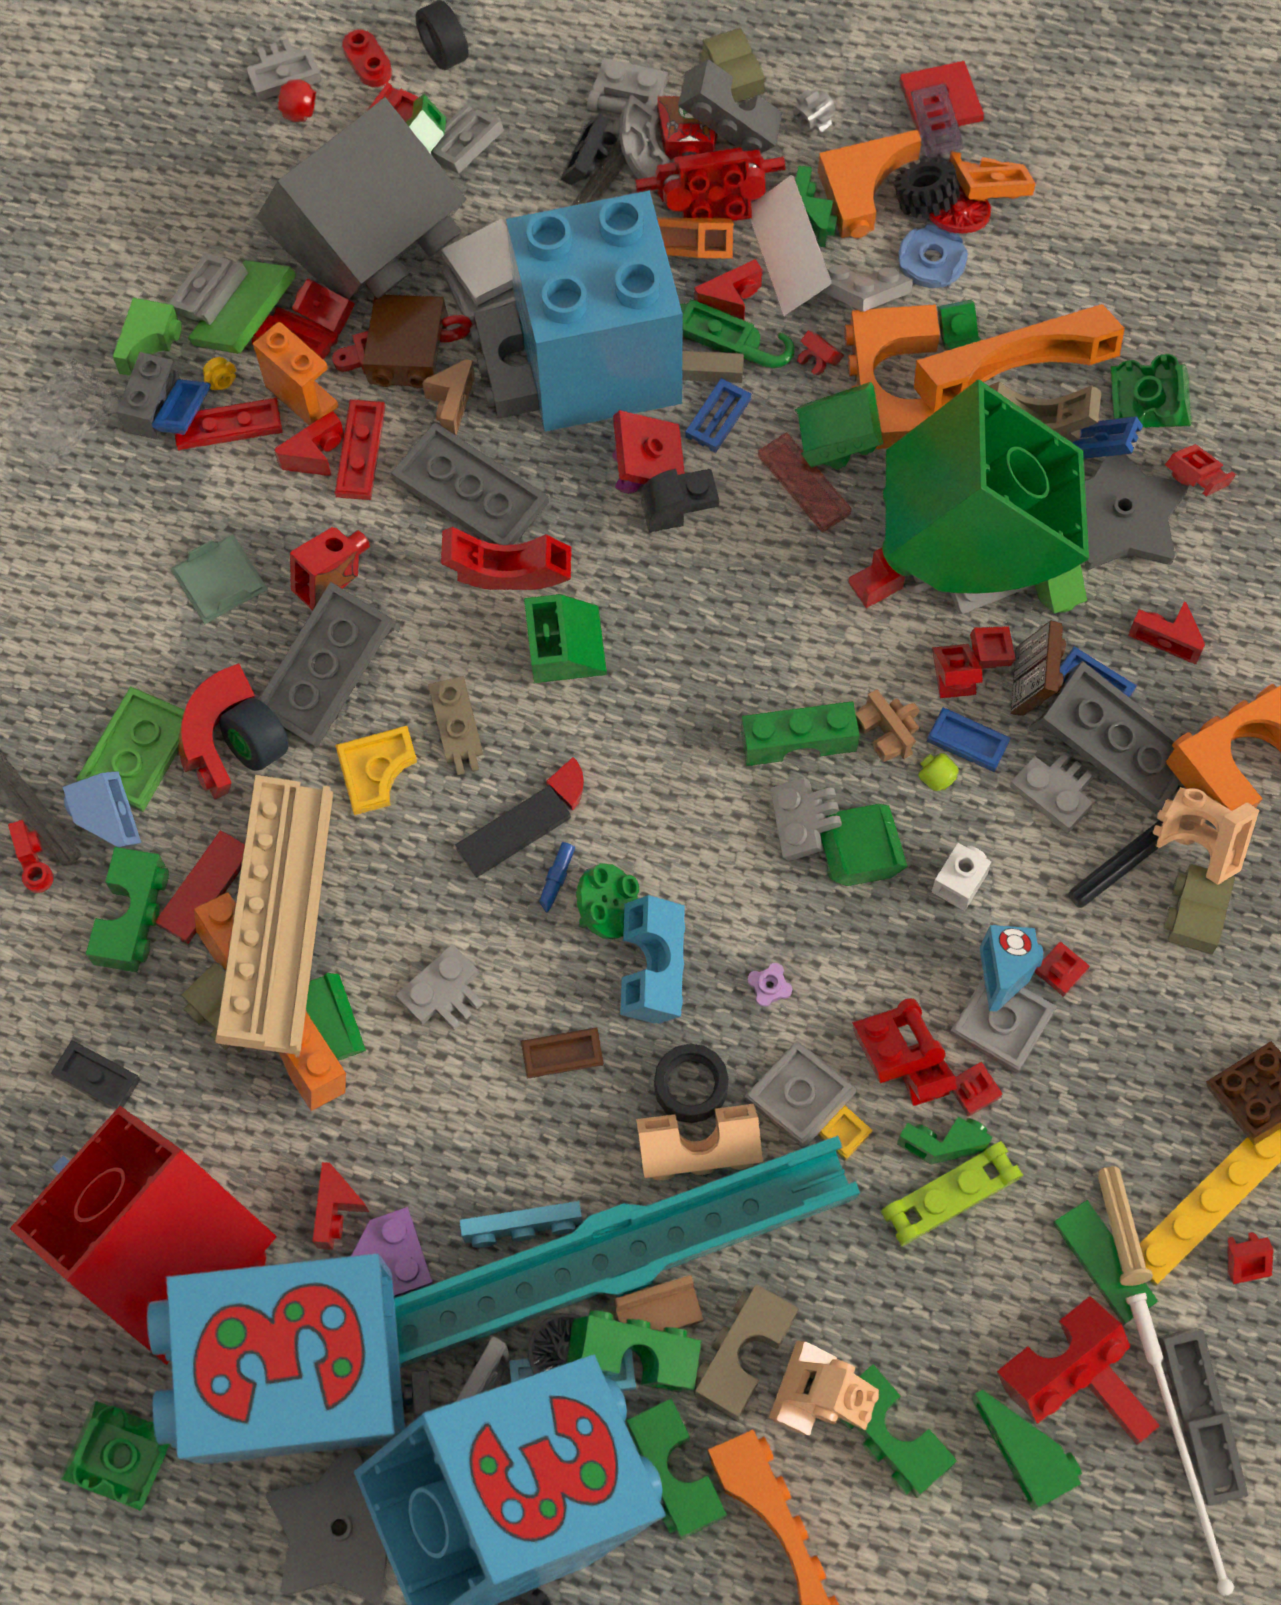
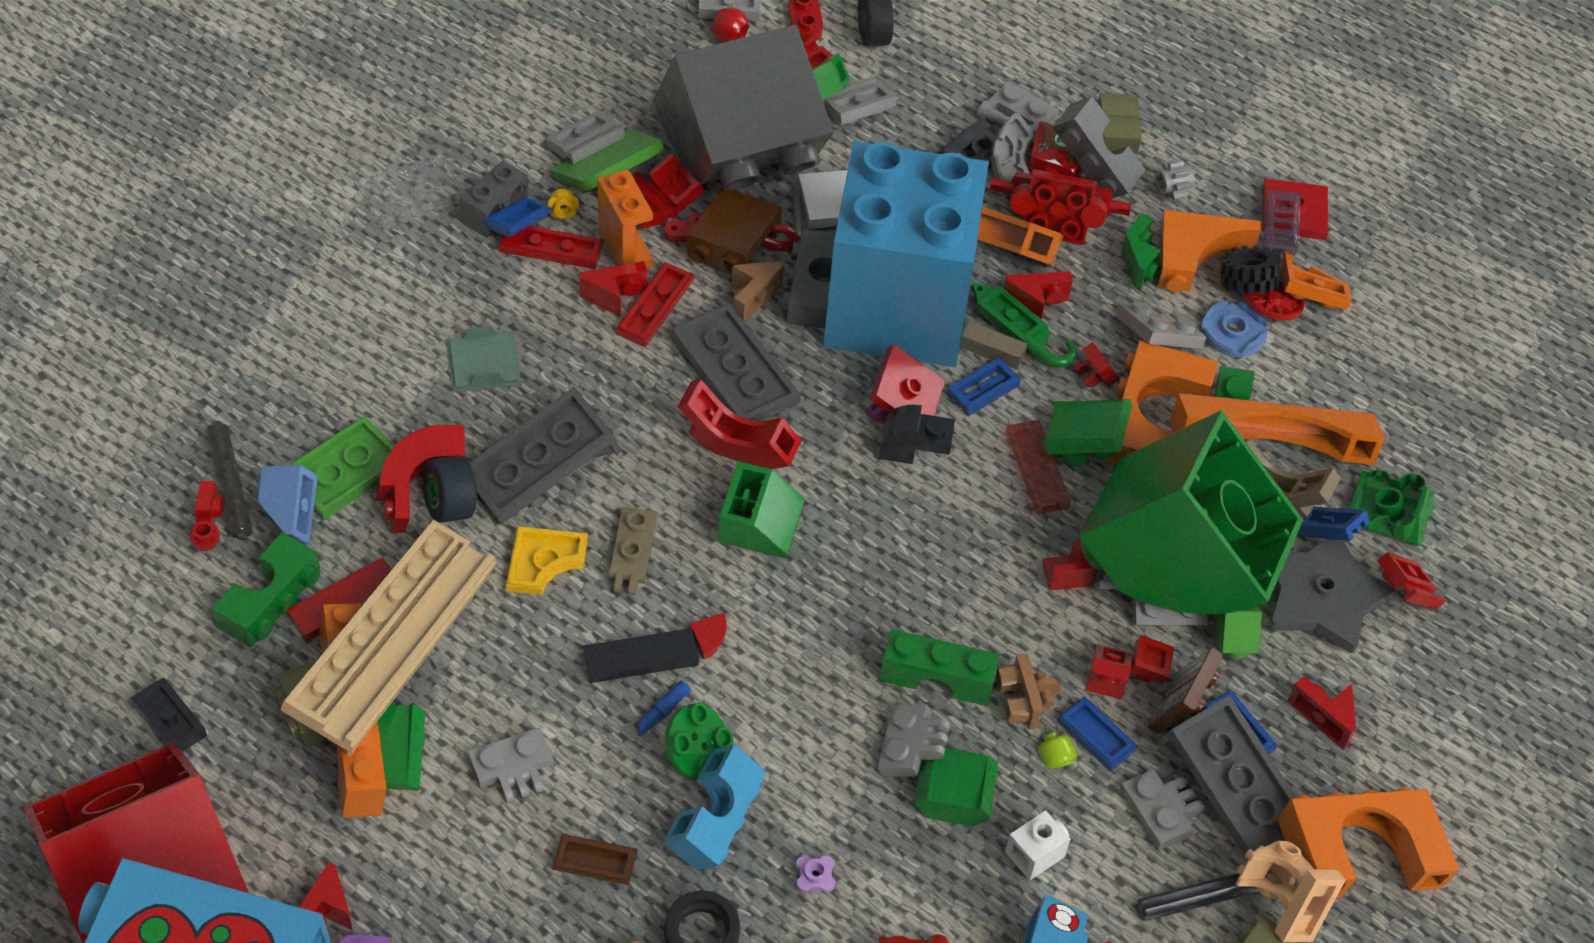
camera: 15 degrees right, 15 degrees down
(147, 329) = (520, 147): bright green arch -> none
(325, 560) = (583, 369): red torso -> none
(789, 245) = (1106, 274): white sticker -> none

